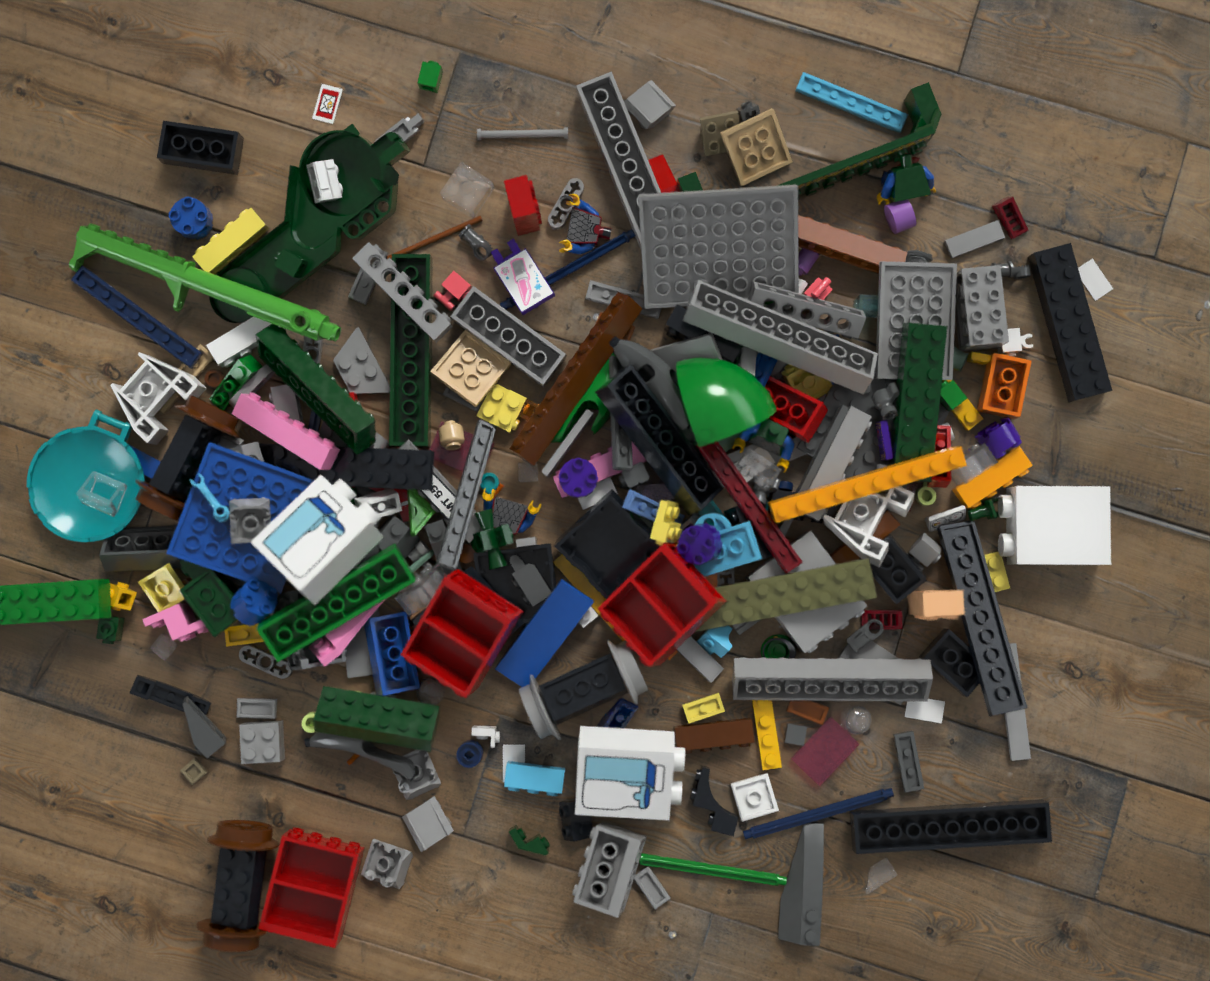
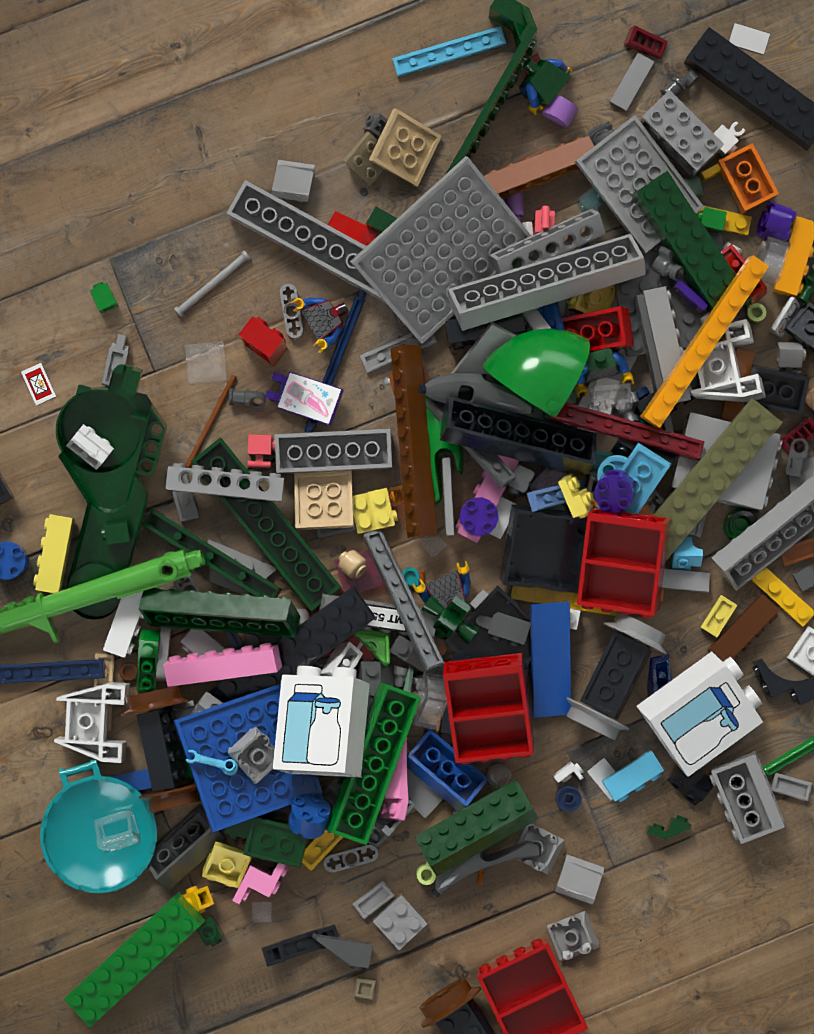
camera: 40 degrees left, 0 degrees up
(348, 341) = (213, 557): none -> dark green tile

